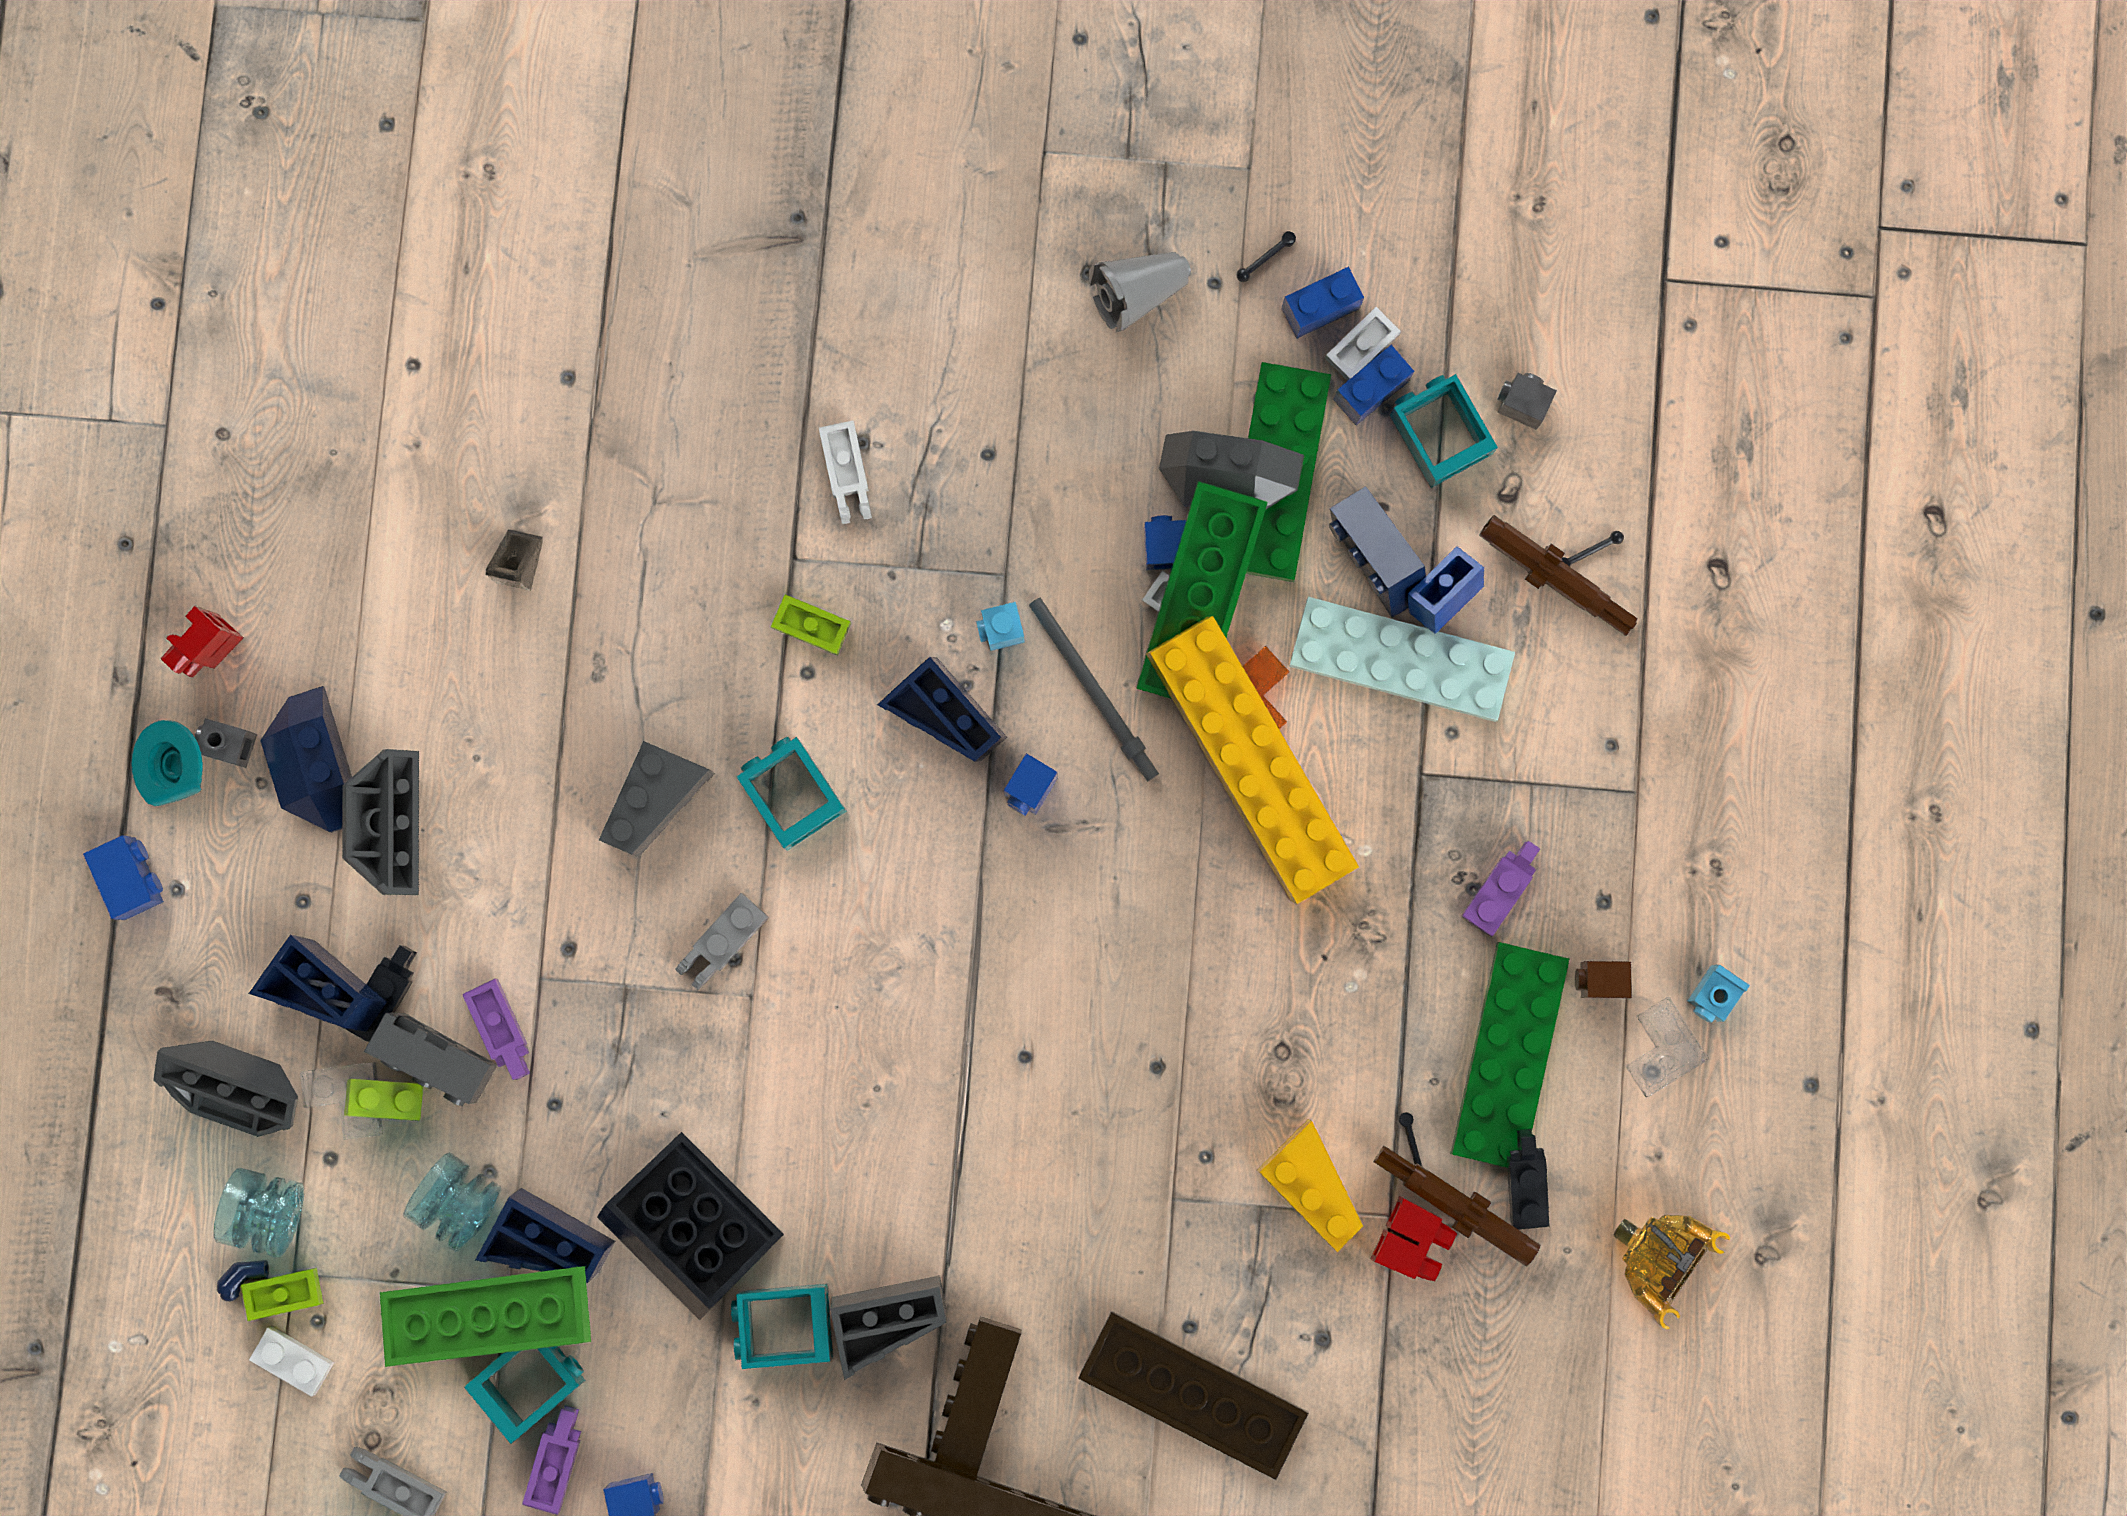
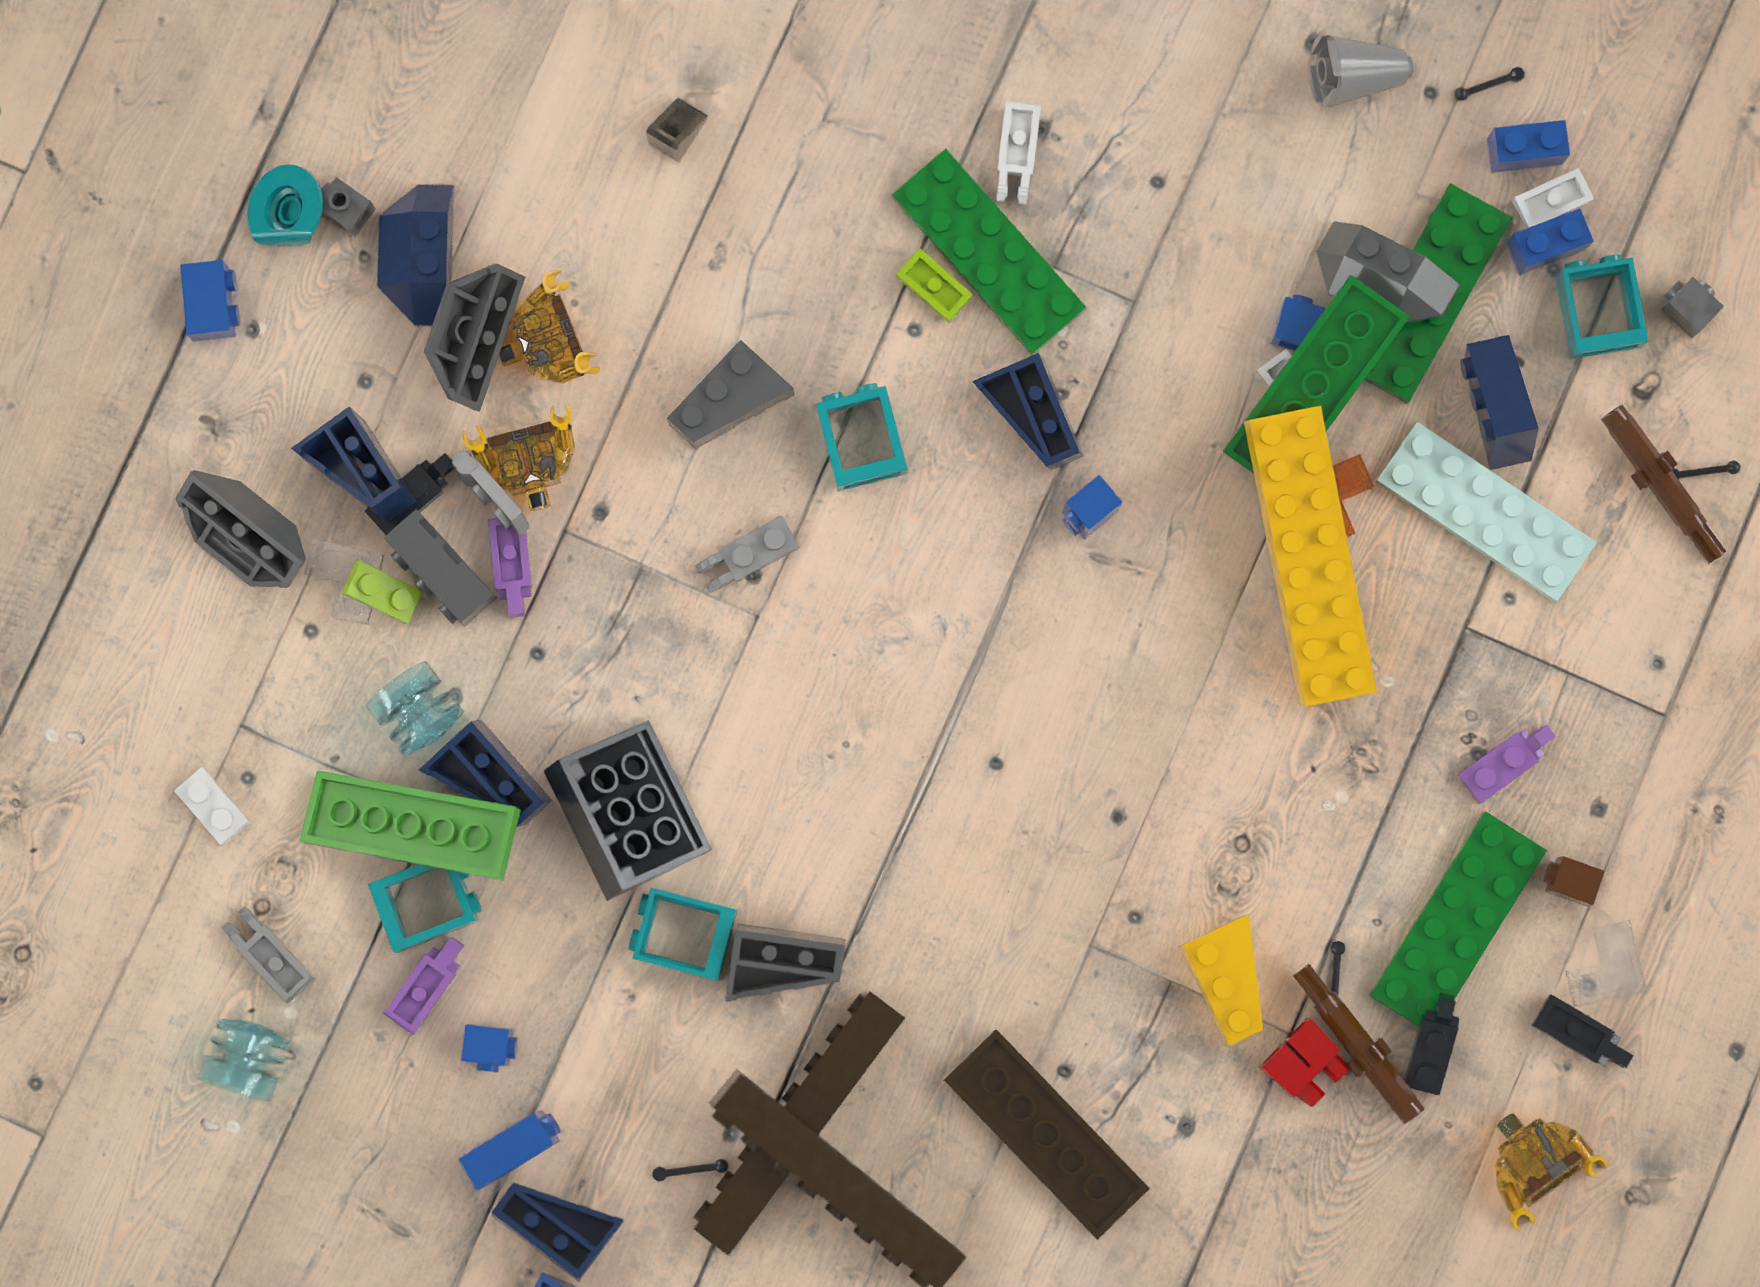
camera: 20 degrees right, 0 degrees up
(202, 644) = (356, 107): red hips -> none
(231, 1281) = (188, 708): dark blue arm -> none
(258, 1212) = (226, 651): clear light blue wheel -> none
(282, 1294) = (225, 740): lime plate -> none
(452, 967) = (488, 490): none -> light grey hinge
(459, 800) = (547, 336): none -> torso
(479, 922) = (528, 457): none -> torso
(852, 575) = (989, 252): none -> green plate
(1001, 626) = (1114, 349): medium azure brick -> none
(1132, 746) = (1199, 505): dark grey bar -> none
(1446, 589) = (1551, 459): blue brick -> none
(1660, 1120) = (1580, 1033): none -> black hinge
(1703, 995) = (1661, 932): medium azure brick -> none

